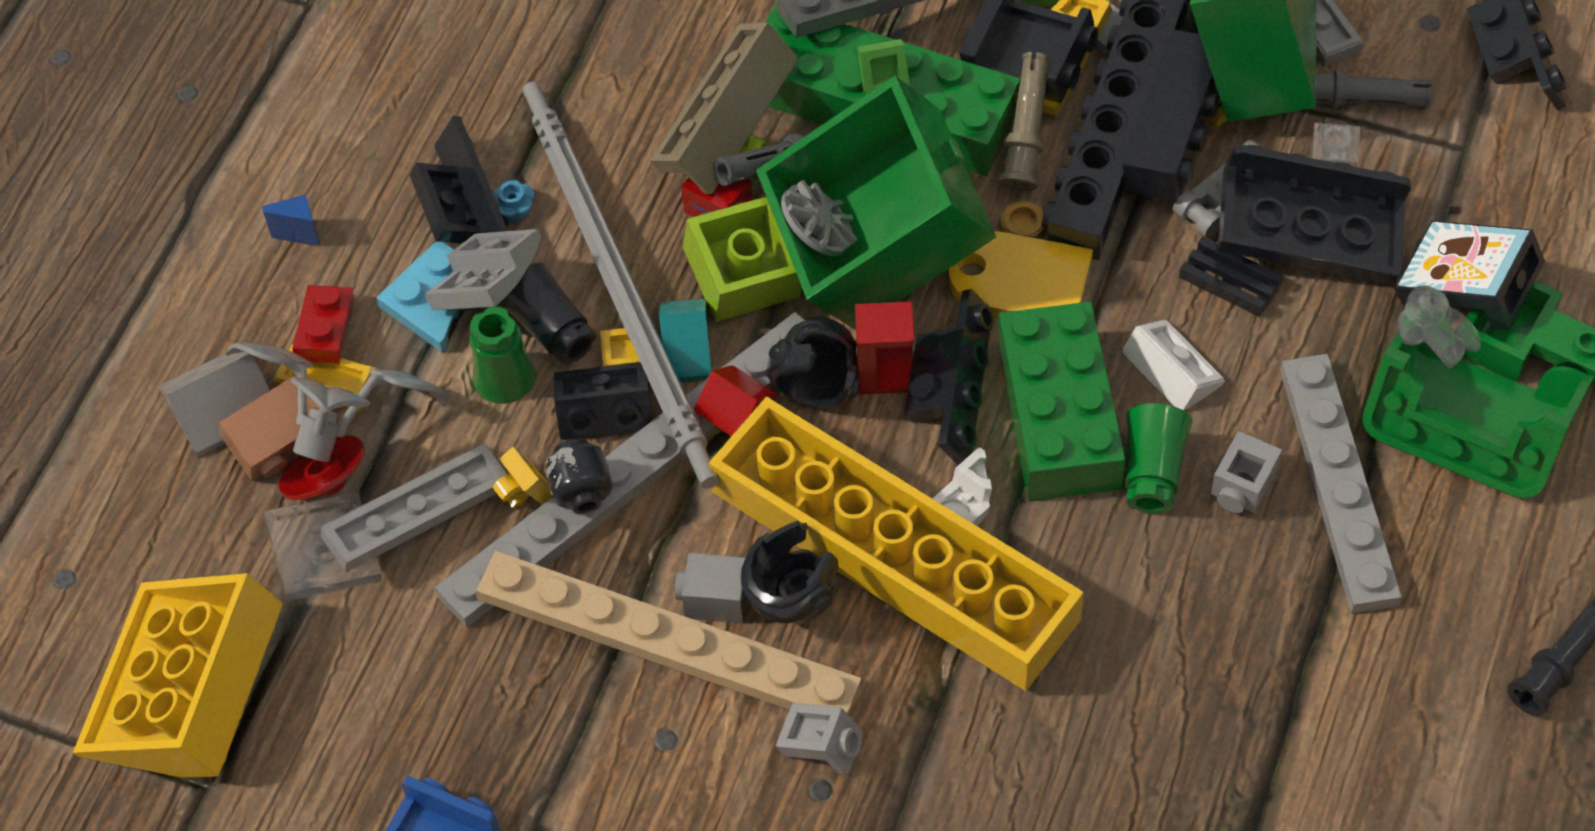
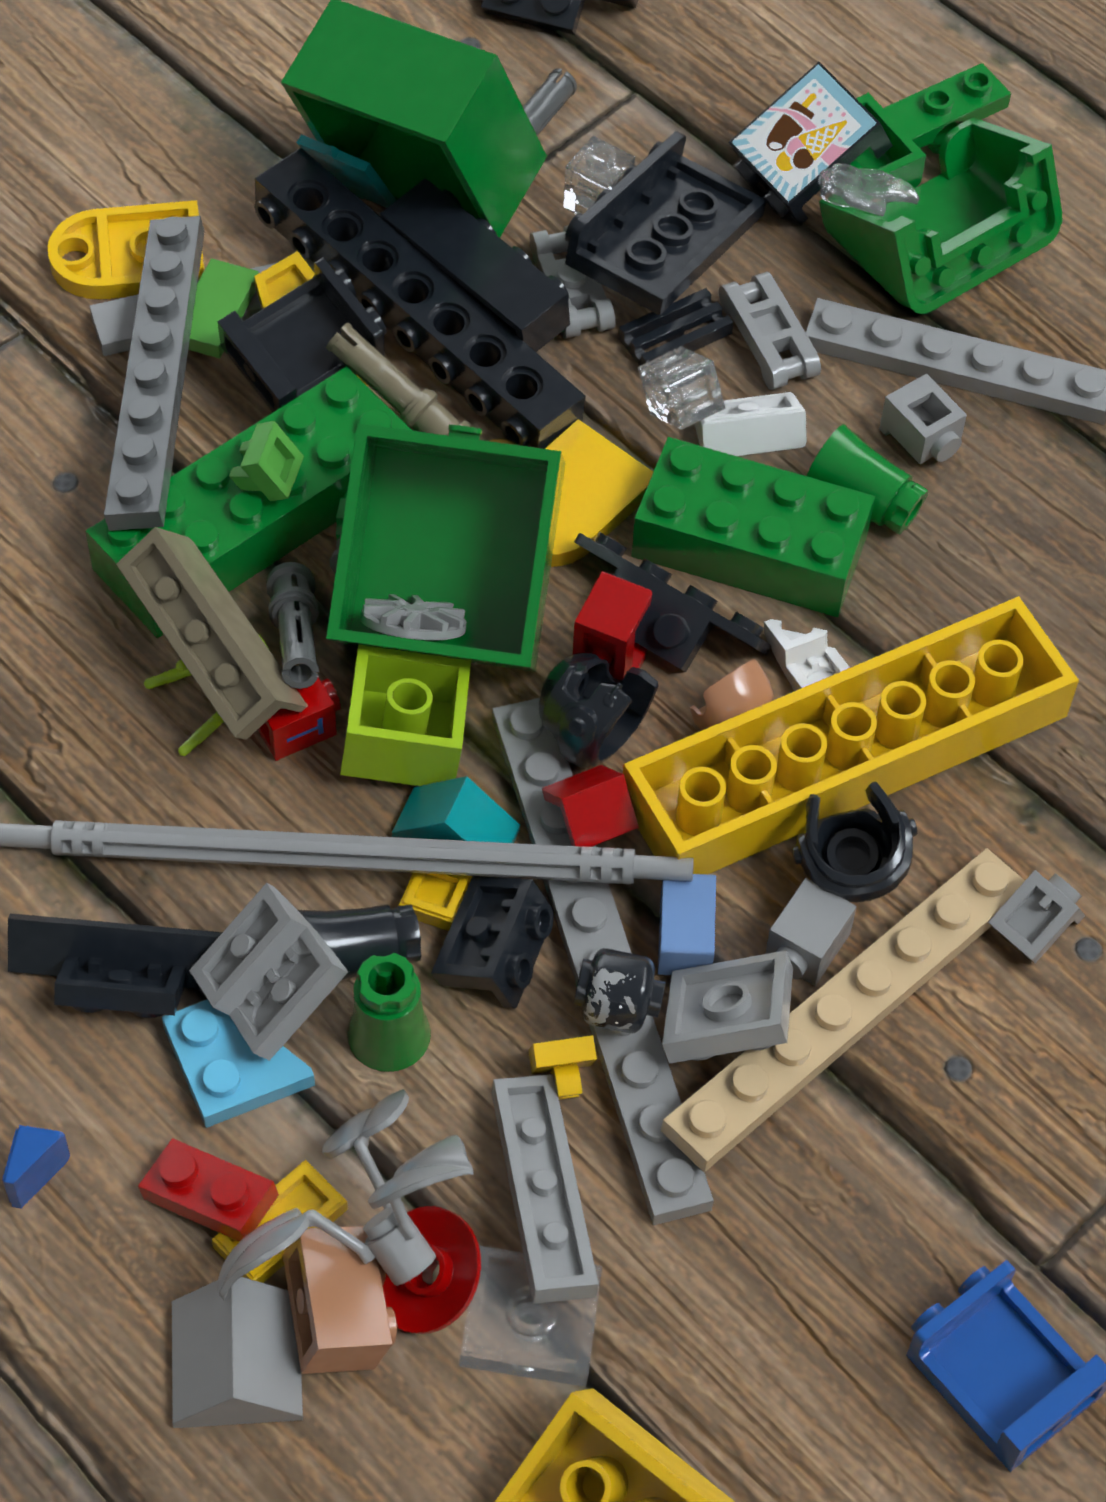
camera: 70 degrees left, 0 degrees up
(517, 208) = (156, 902): dark azure plate -> none
(611, 555) = (728, 1007): none -> light grey plate
(677, 509) = (687, 923): none -> medium blue piece
(886, 448) = (733, 695): none -> nougat hair
(1159, 296) = (681, 387): none -> clear brick
(1272, 335) = (770, 329): none -> light grey plate

